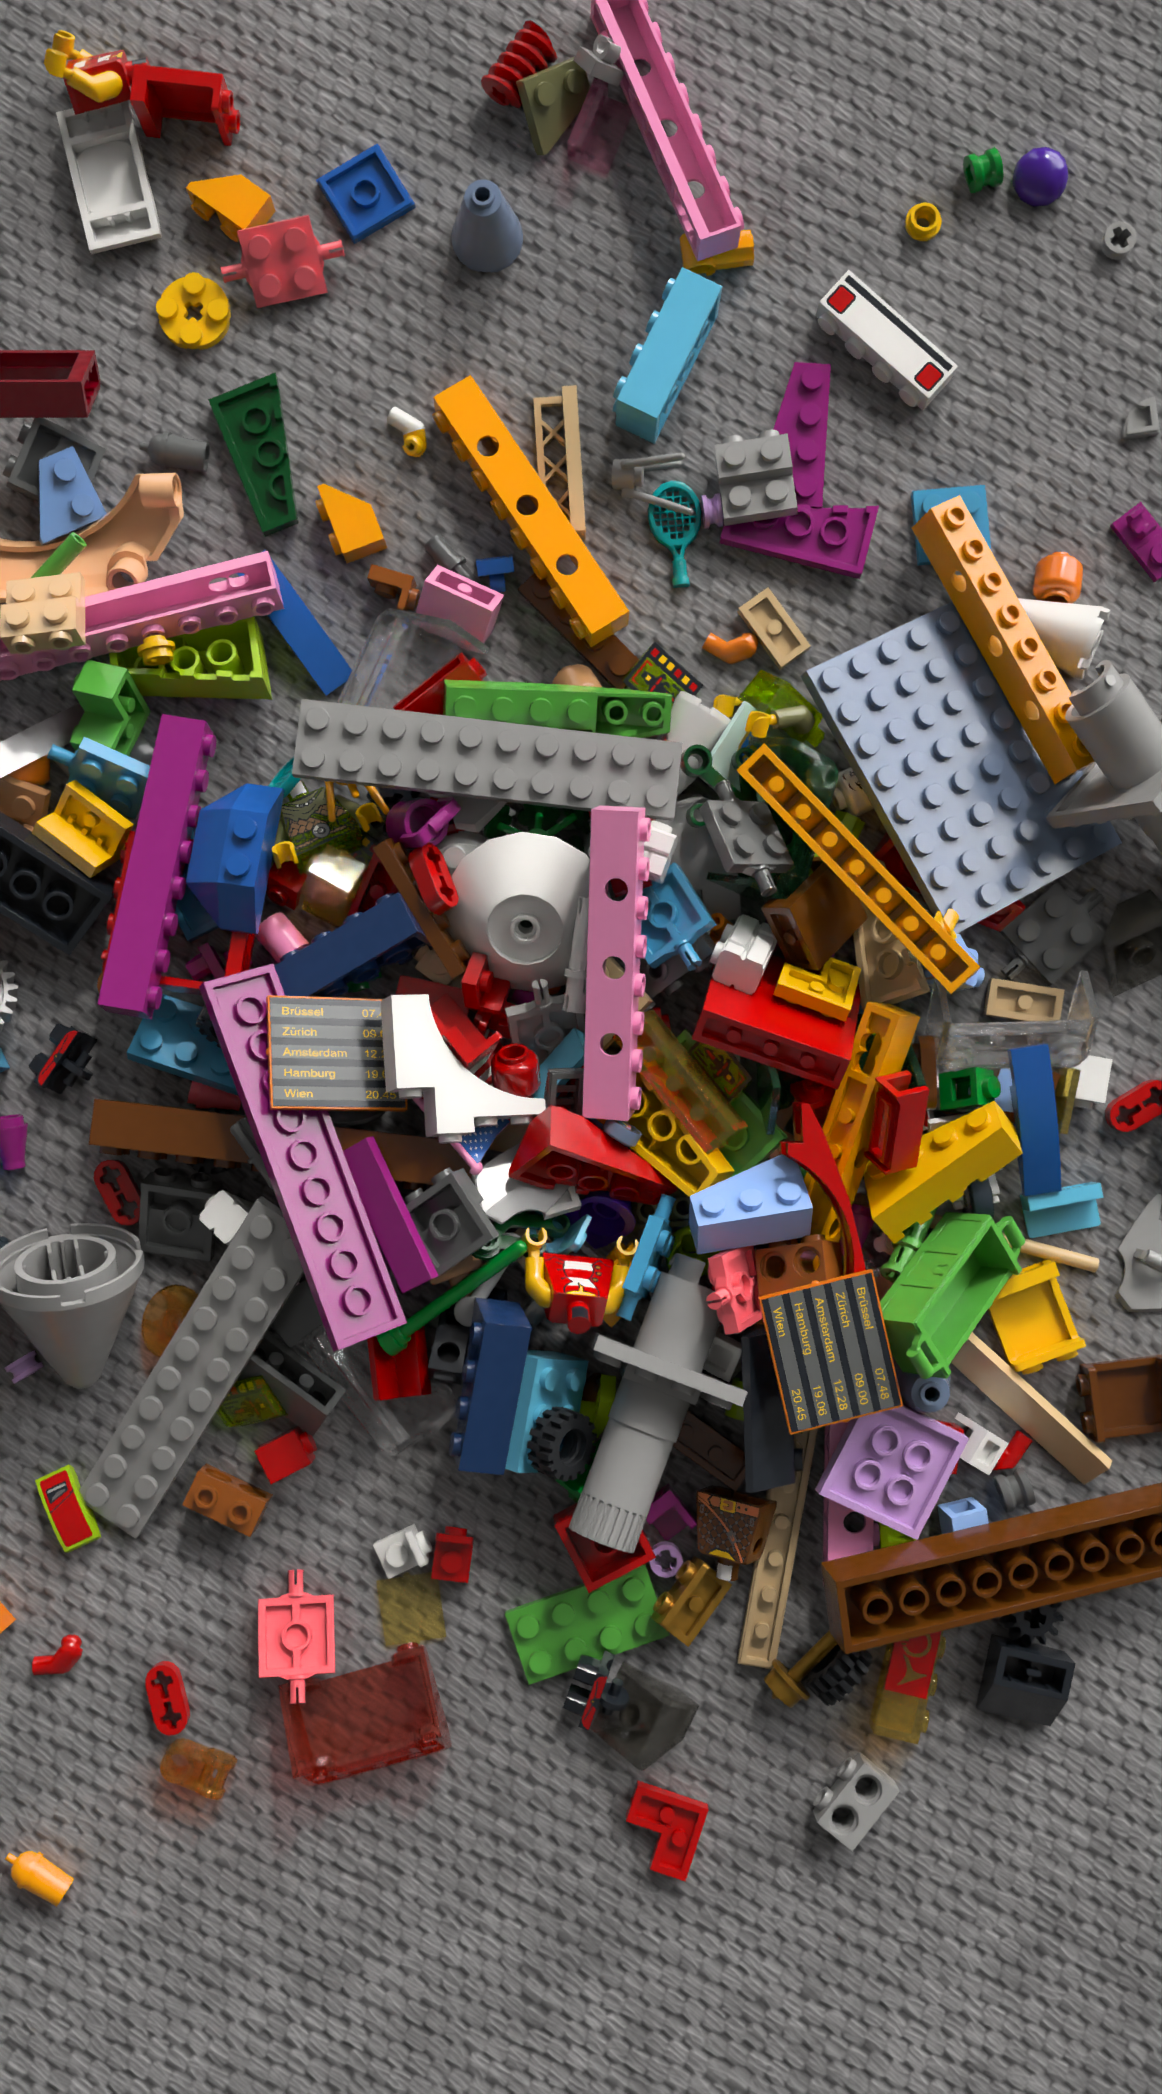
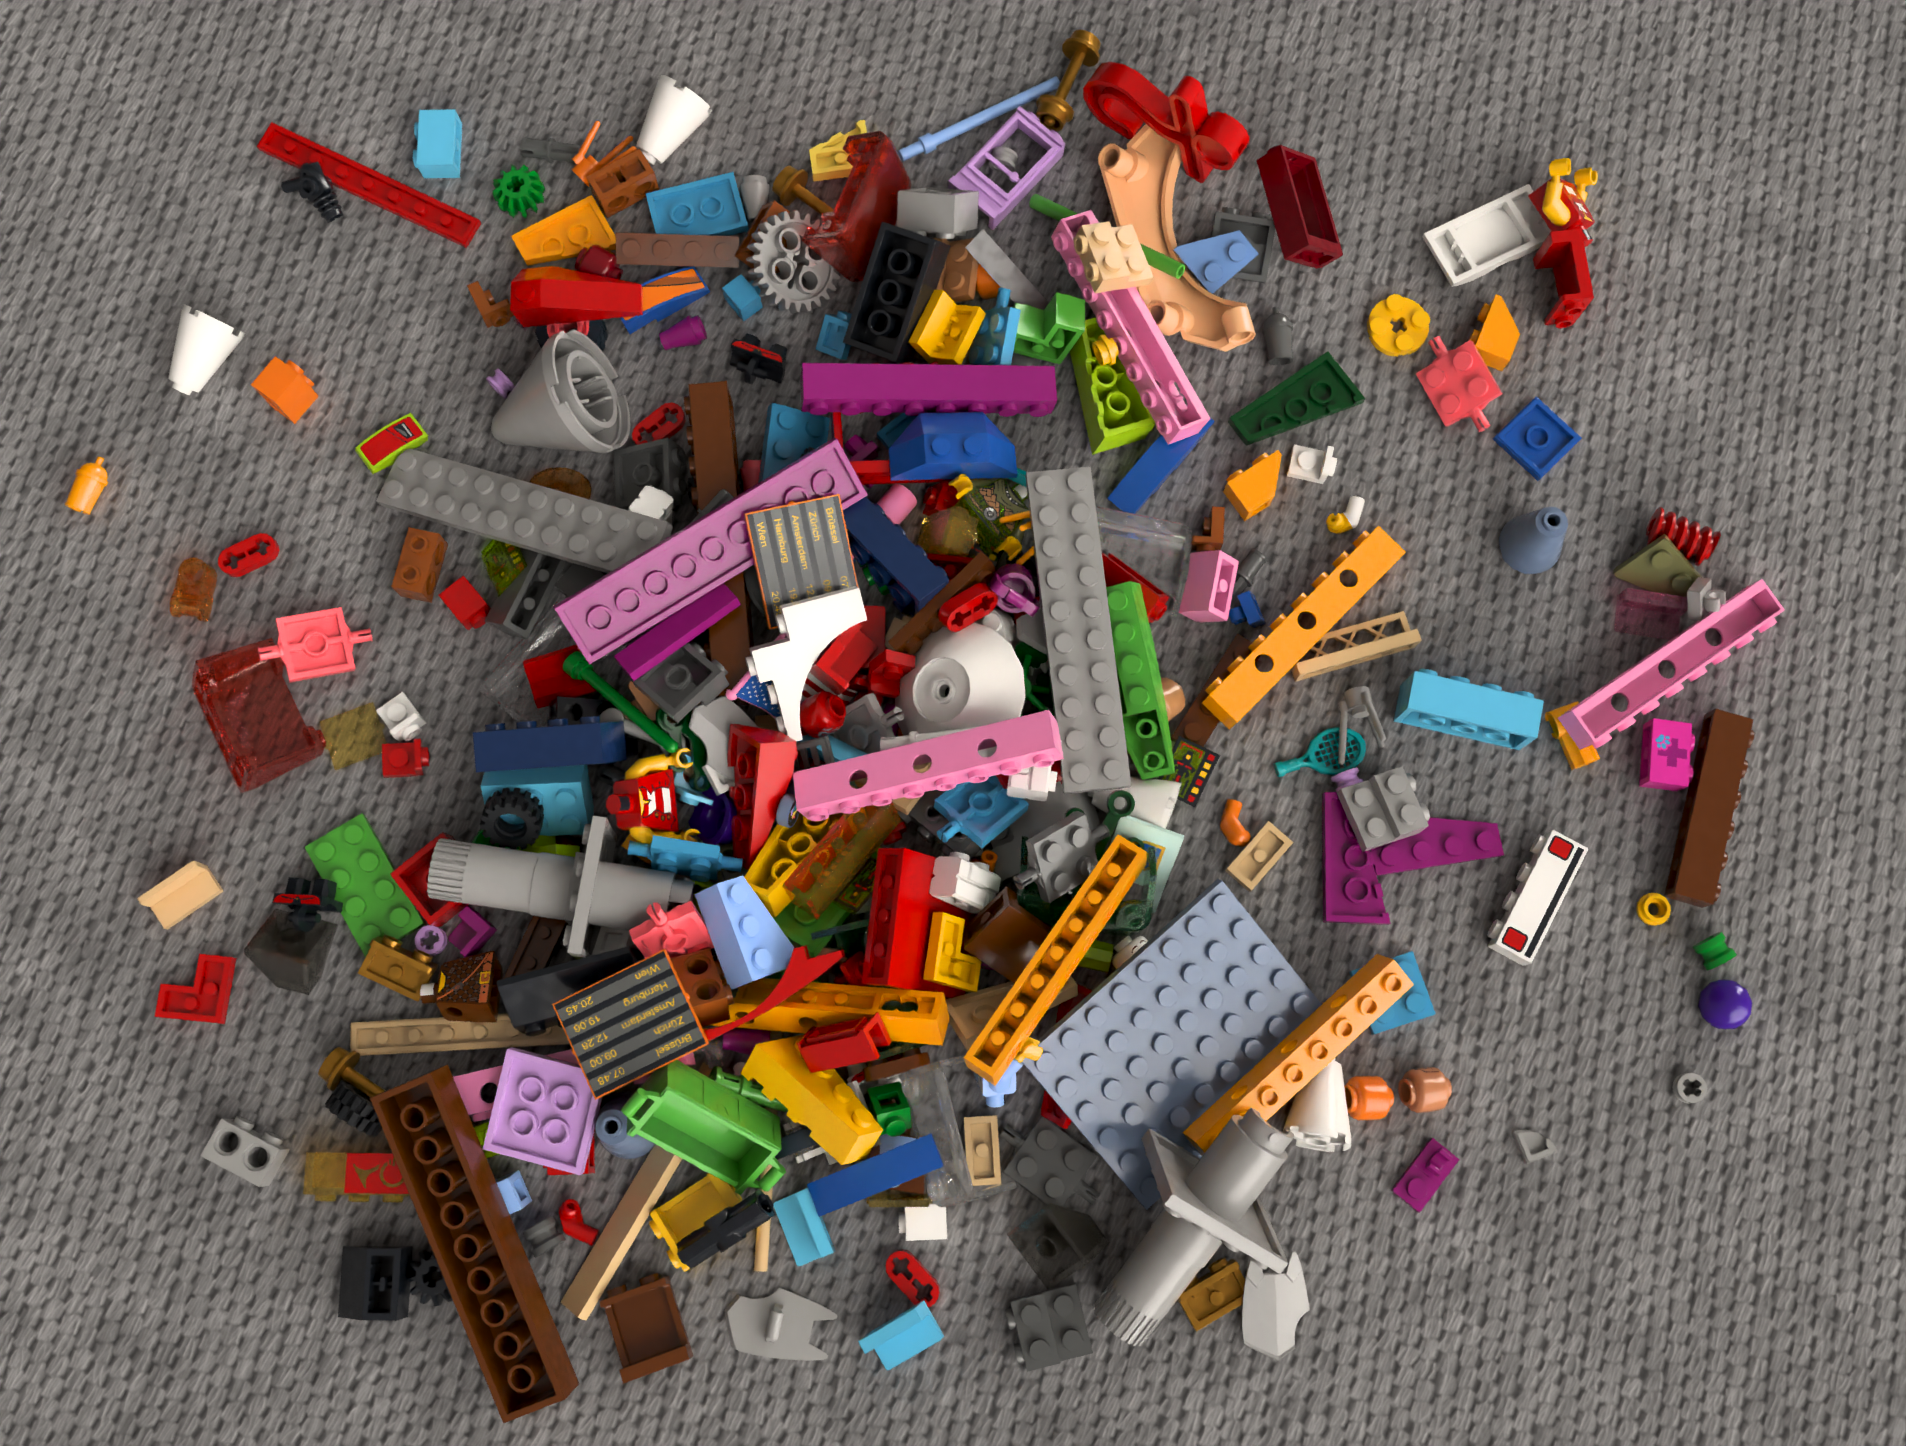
camera: 75 degrees right, 10 degrees down
(53, 963) = (833, 334): none -> dark azure bracket
(62, 1660) = (266, 466): red arm -> none
(338, 453) = (1311, 464): none -> white bracket
(553, 1830) = (181, 893): none -> tan panel
(761, 157) = (1666, 755): none -> dark pink brick
(777, 706) = (1186, 870): torso -> none
(829, 128) = (1710, 808): none -> reddish brown brick
(983, 1447) = (577, 1195): white panel -> none
(1055, 1292) = (725, 1229): none -> black piece
(1062, 517) = (1424, 1089): none -> nougat head

